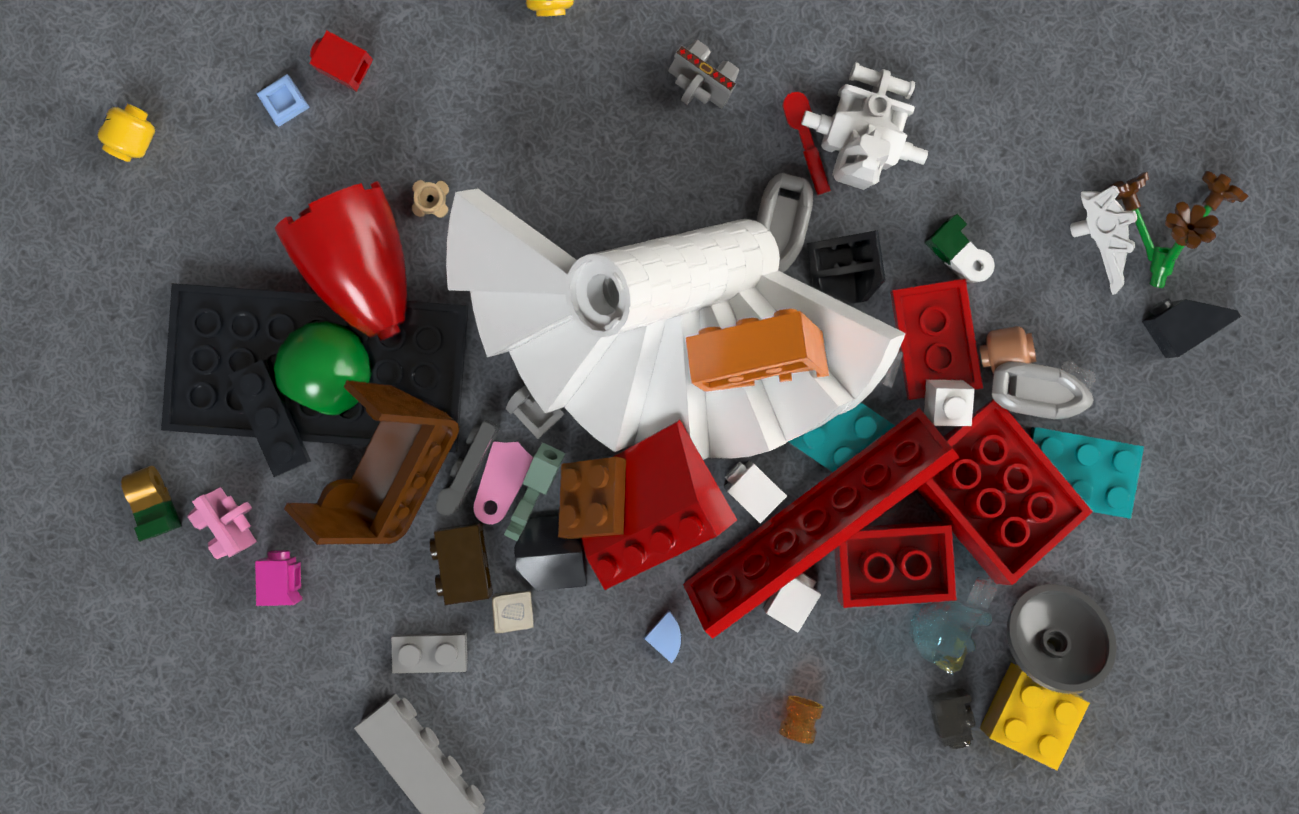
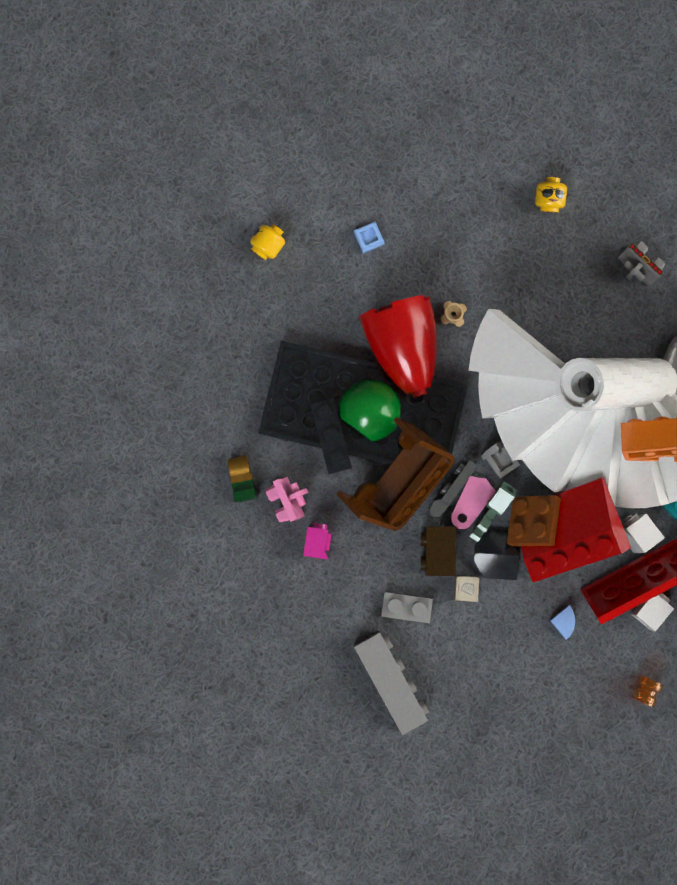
camera: 15 degrees right, 5 degrees down
(340, 60) = (411, 218): red brick -> none

